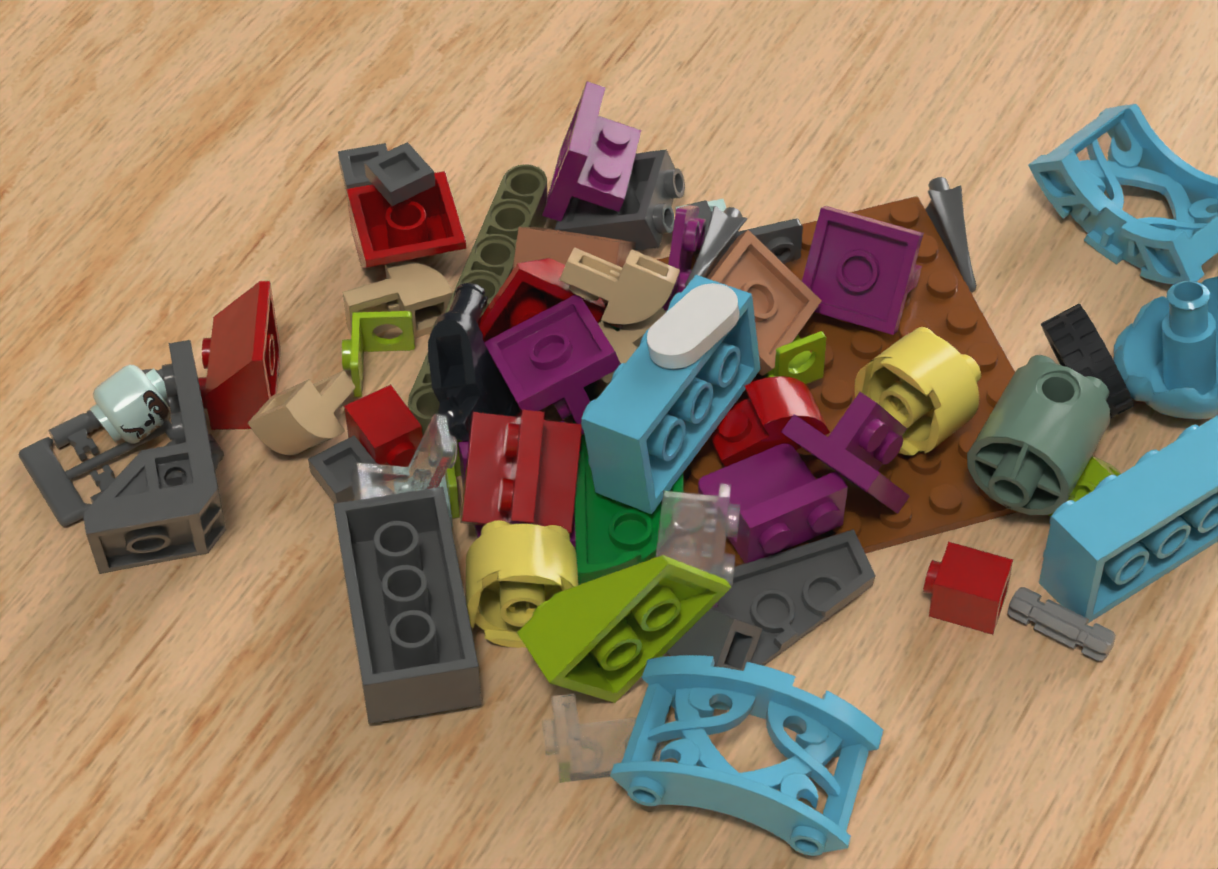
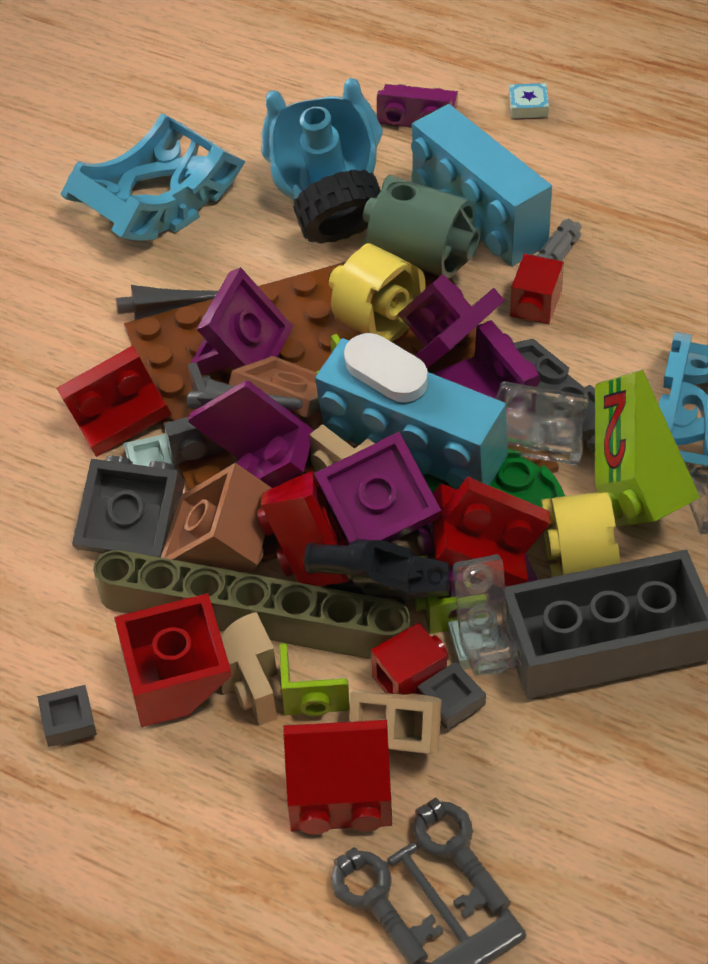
camera: 90 degrees left, 0 degrees up
(131, 404) = (403, 865): light aqua head -> none
(155, 518) = (538, 779): dark grey bracket -> none
(399, 174) = (133, 638): dark grey plate -> none
(593, 158) = (100, 512): bracket -> none
(632, 291) = (311, 438): tan brick -> none
(780, 178) = (114, 401): none -> red bracket

